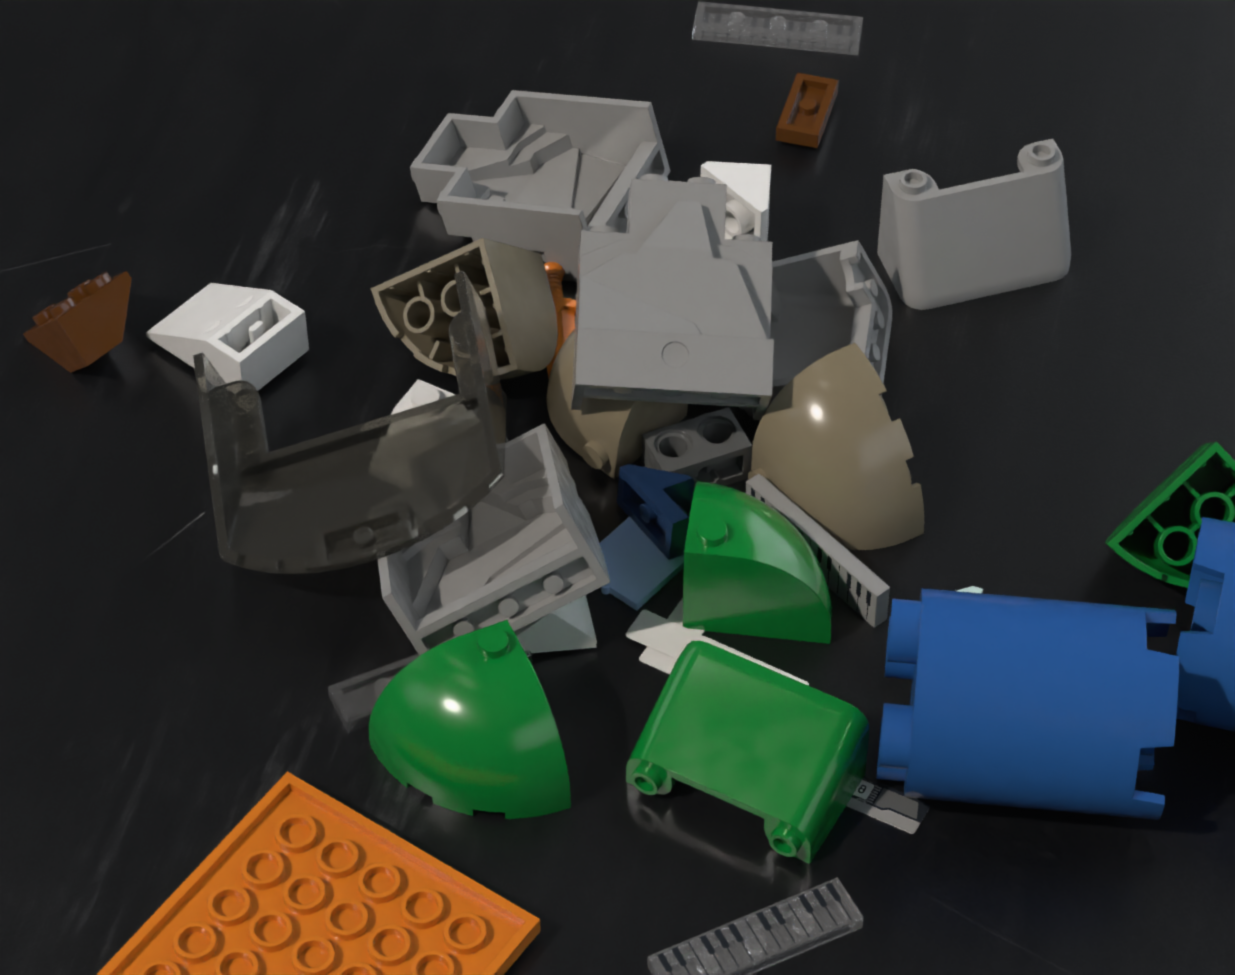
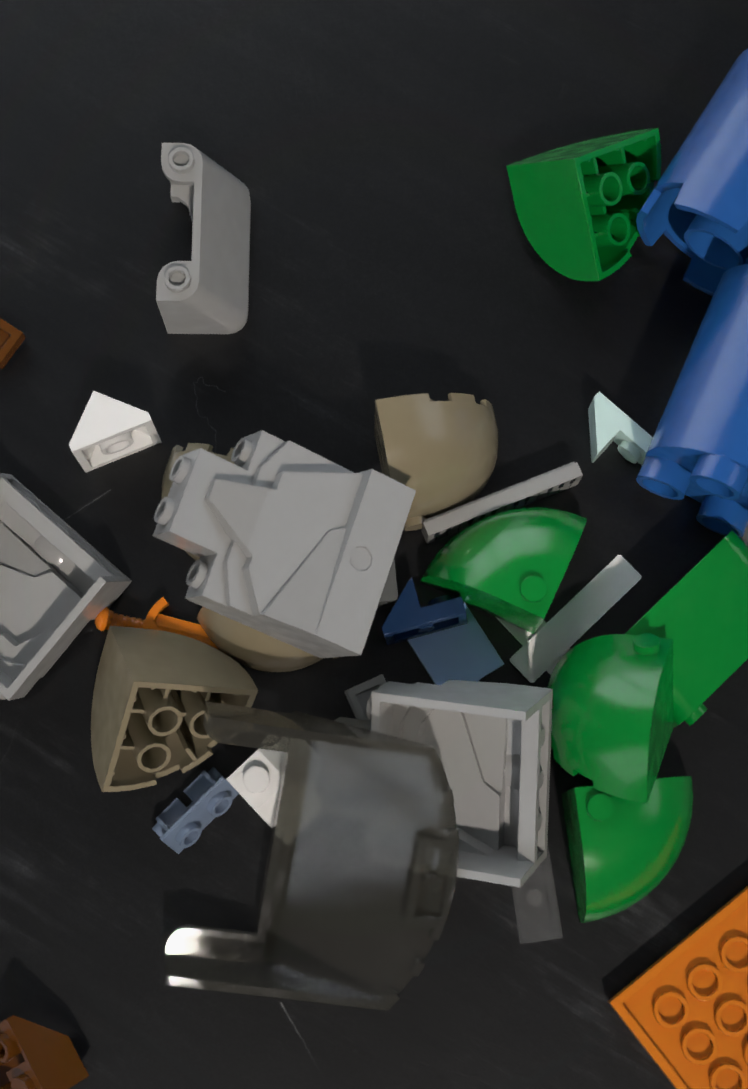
camera: 75 degrees left, 30 degrees up
(240, 331) = (85, 933): white slope -> none
(368, 385) = (183, 825): none -> sand blue hinge
(609, 656) = (614, 711): none -> green brick
(824, 305) = (256, 393): light grey windscreen -> none

